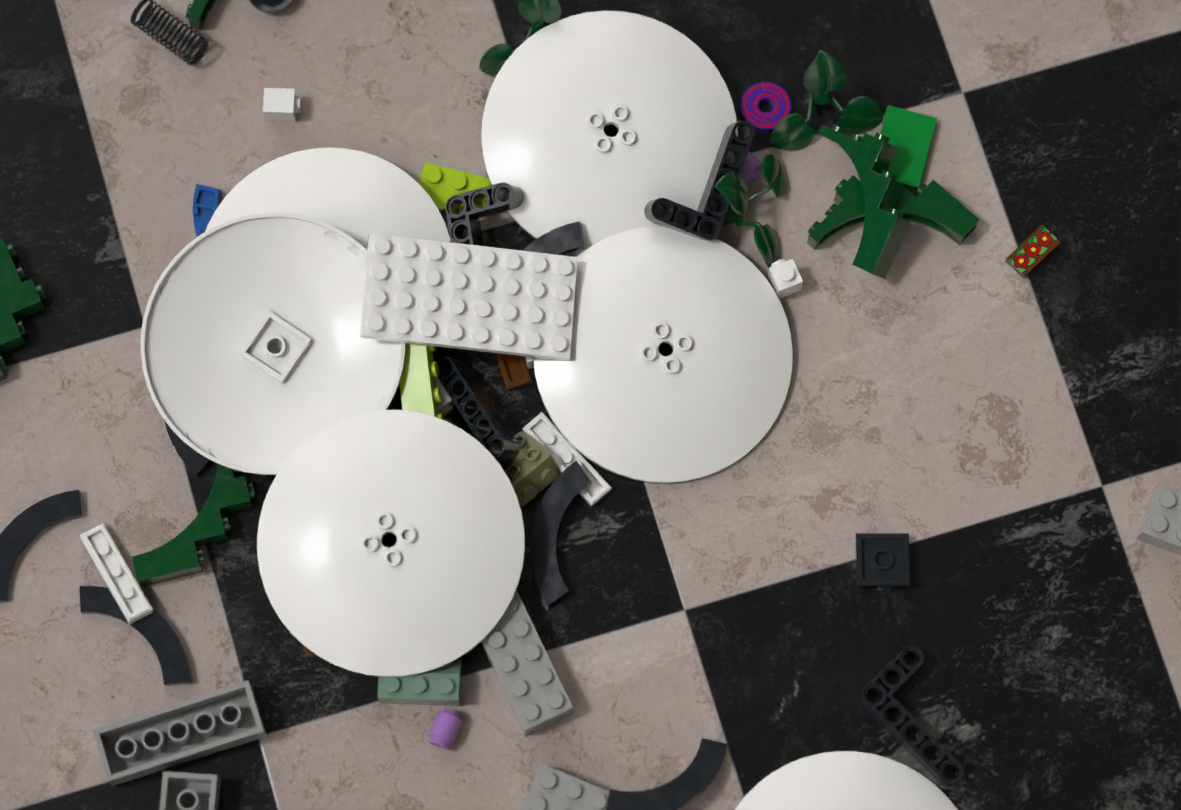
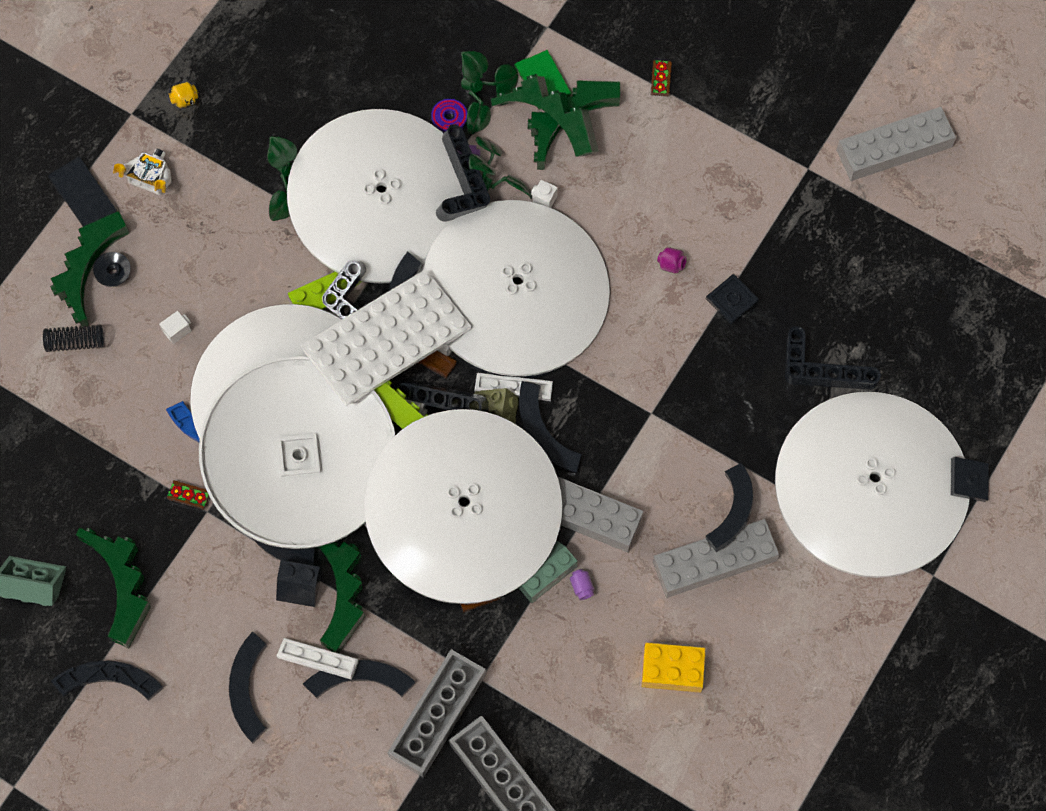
camera: 40 degrees left, 5 degrees down
(136, 288) = (188, 495): none -> tile
(165, 478) = (298, 583): none -> black slope
(856, 463) = (672, 260): none -> magenta head

